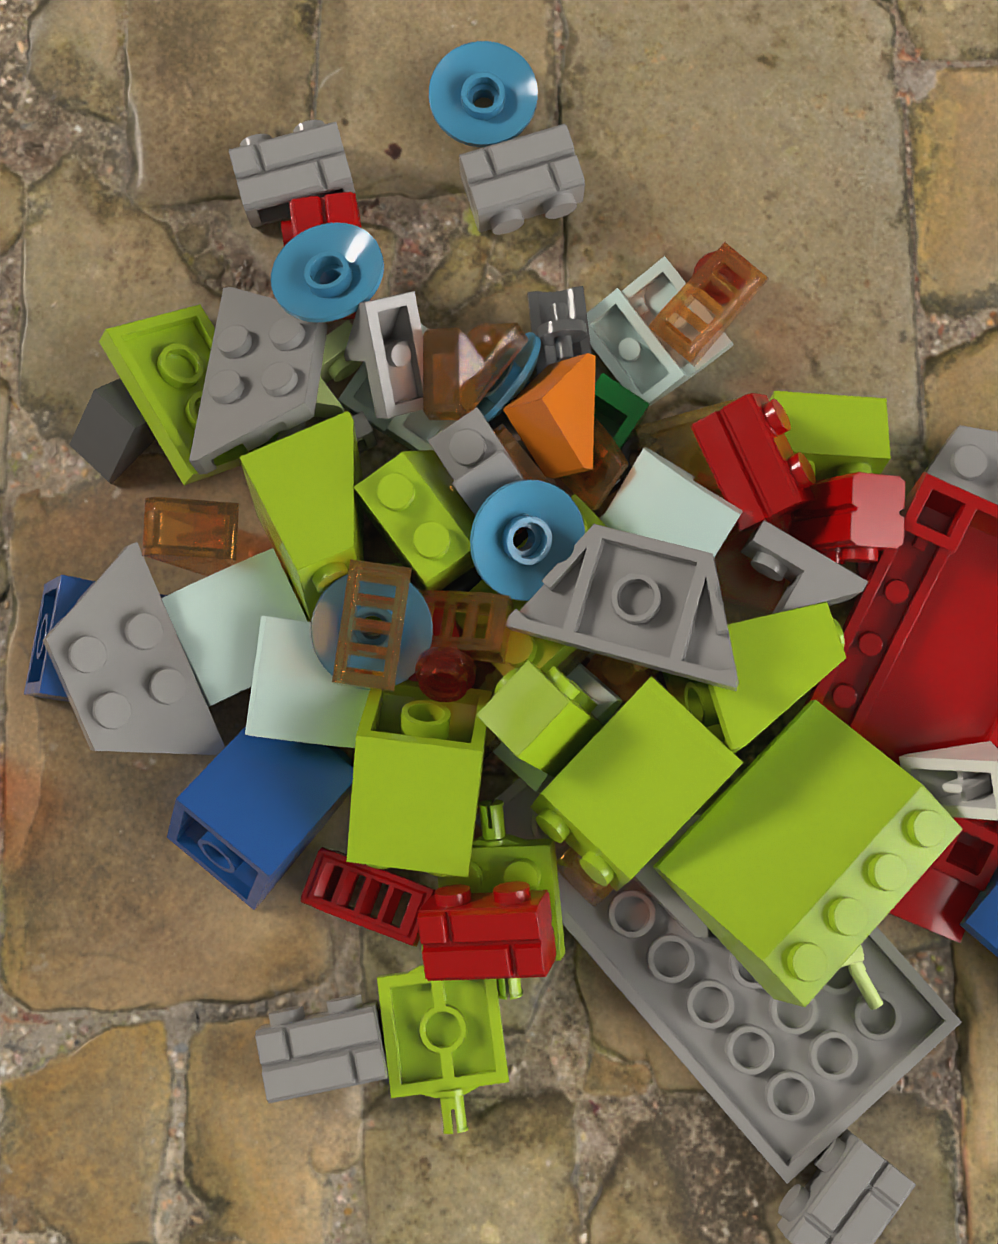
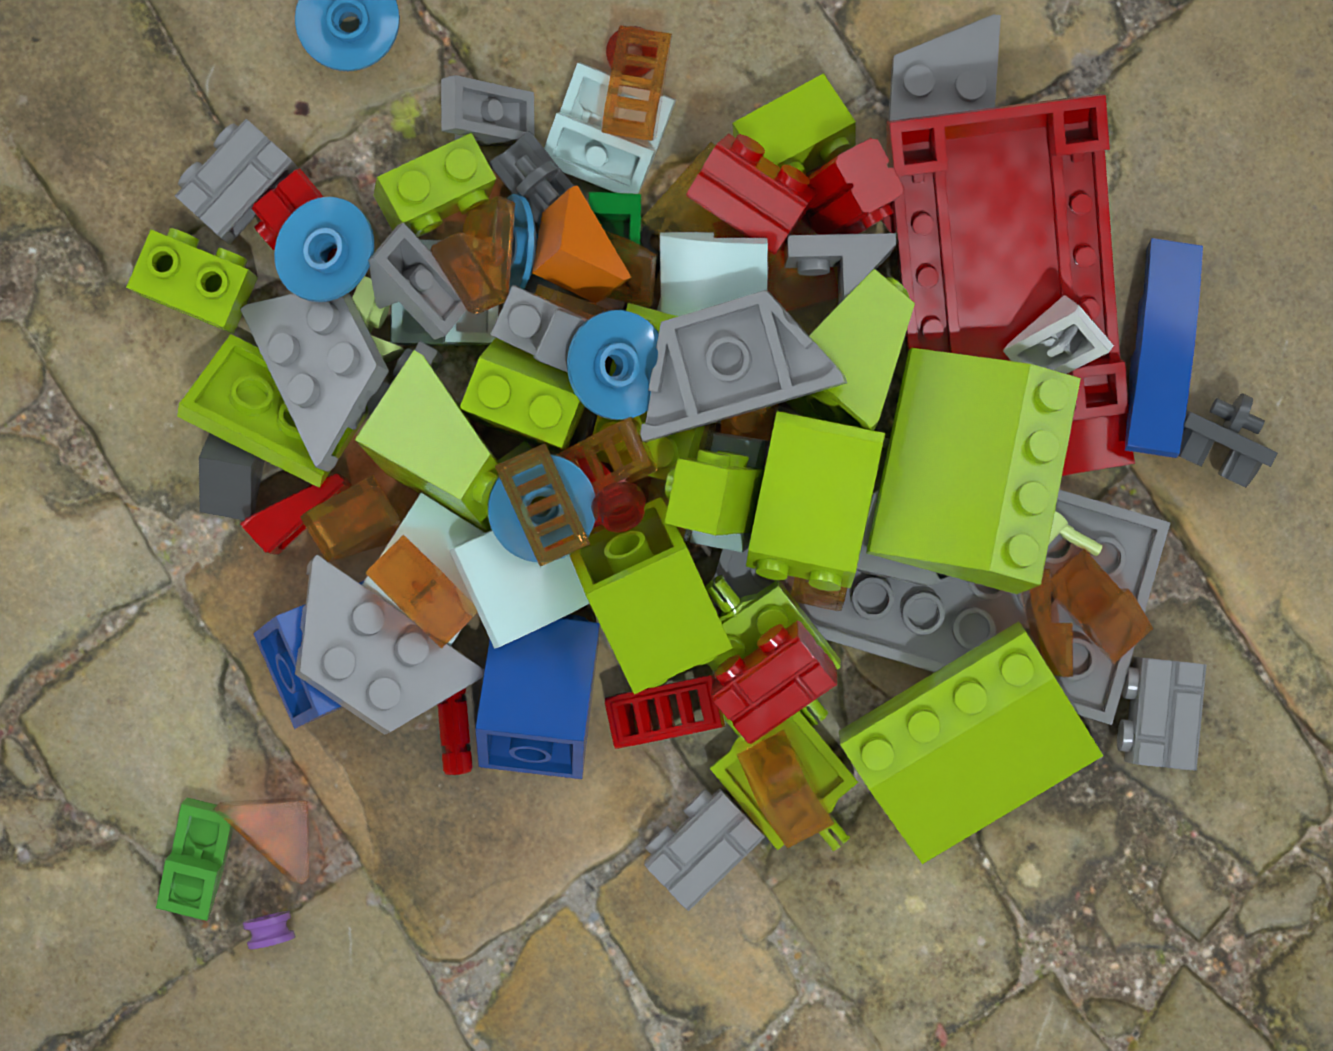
camera: 30 degrees left, 5 degrees up
(122, 497) = (281, 522): none -> red slope
(162, 792) = (455, 735): none -> red axle
(197, 236) = (193, 280): none -> lime brick
(211, 638) = (422, 591): none -> clear orange slope
(433, 1044) = (784, 789): none -> clear orange slope
(466, 282) = (435, 186): none -> lime brick
(522, 179) = (411, 74): light grey brick -> none
(553, 246) = (487, 110): none -> light grey slope
(639, 1113) = (969, 743): none -> lime slope
(780, 1065) = (1051, 639): none -> clear orange slope
(844, 1060) = (1099, 606): none -> clear orange slope

